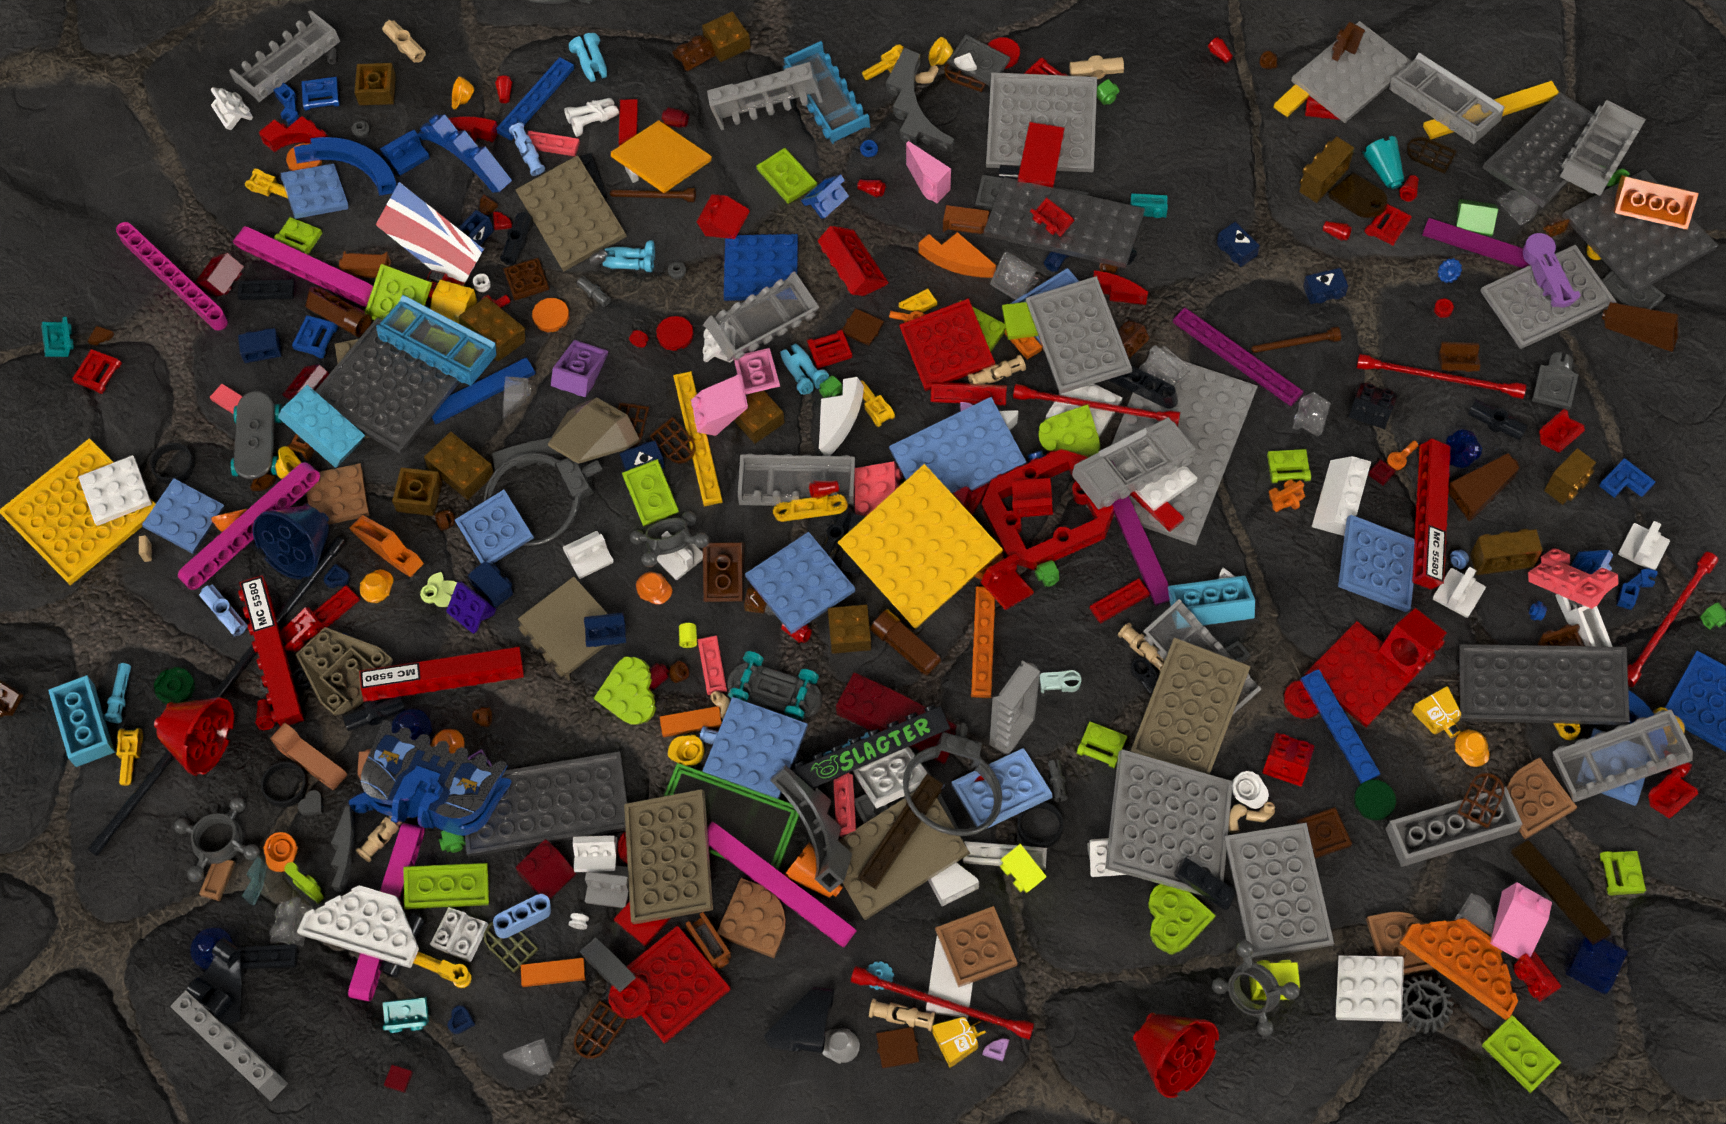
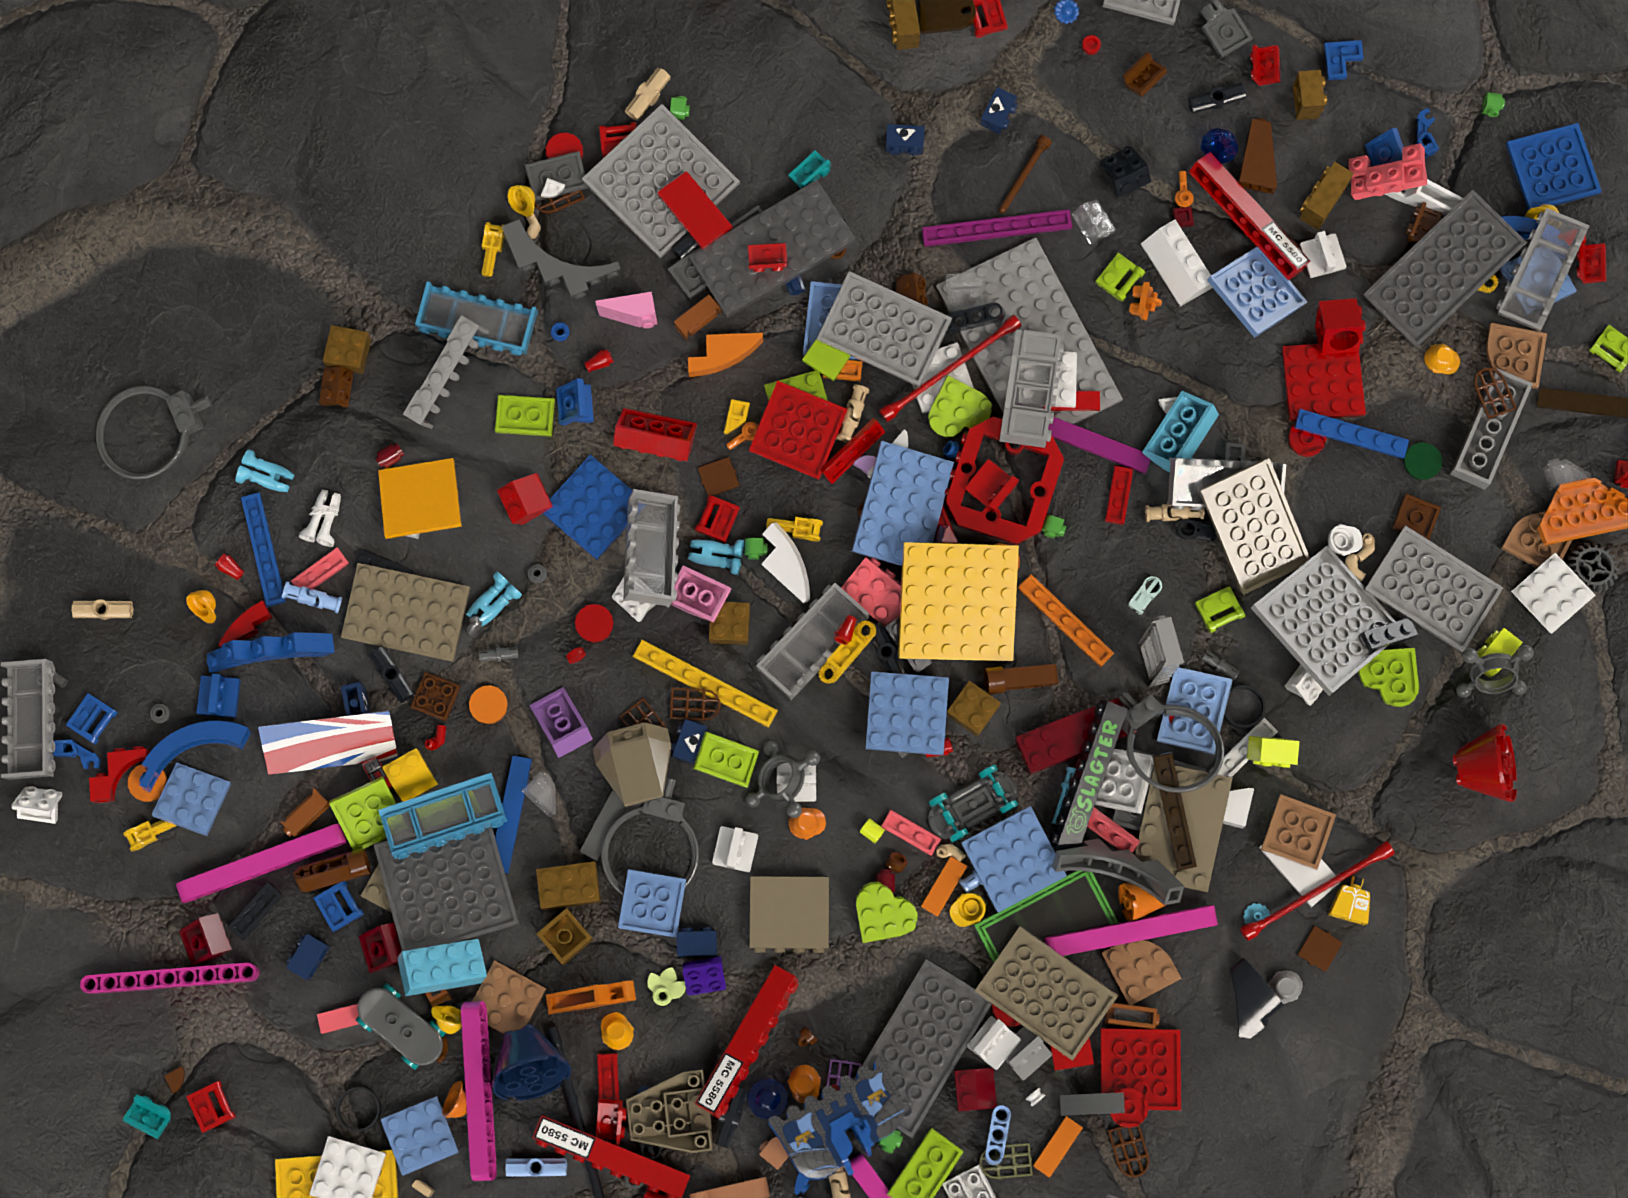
camera: 50 degrees left, 15 degrees up
(301, 232) = (221, 840): lime plate -> none
(336, 576) = (581, 1056): dark blue tile -> none
(375, 84) = (128, 667): pearl gold brick -> none
(442, 521) = (606, 937): reddish brown tile -> none
(482, 287) = (402, 732): white bush -> none
(487, 205) = (334, 672): reddish brown tile -> none
(494, 324) = (463, 760): pearl gold brick -> none
(501, 221) = (360, 672): red tile -> none
(605, 630) = (823, 891): dark blue bracket -> none
(628, 120) = (356, 495): red tile -> none
(689, 194) = (473, 507): reddish brown piece -> none
(719, 405) = (701, 645): bright pink slope -> none
(723, 572) = (843, 760): reddish brown slope -> none
(754, 602) = (886, 758): clear orange slope -> none
(903, 1014) = (1306, 921): tan piece -> none
(996, 1049) = (1379, 881): lavender tile -> none
(1005, 583) = (1039, 564): red bracket -> none
(1014, 276) = (783, 328): clear bracket -> none
(1121, 289) = (862, 260): red slope -> none
(1288, 759) = (1344, 490): red bracket -> none
(1338, 230) = (958, 56): red cone -> none
(1439, 712) = (1400, 357): yellow torso -> none
(1459, 558) = (1299, 230): medium blue plate -> none
(1515, 390) = (1203, 62): red hose -> none
(1520, 920) = (1594, 451): bright pink slope -> none
(1537, 611) = (1385, 217): blue plate -> none
(1644, 546) = (1400, 96): white bracket -> none
(1705, 565) = (1450, 70): red hose -> none

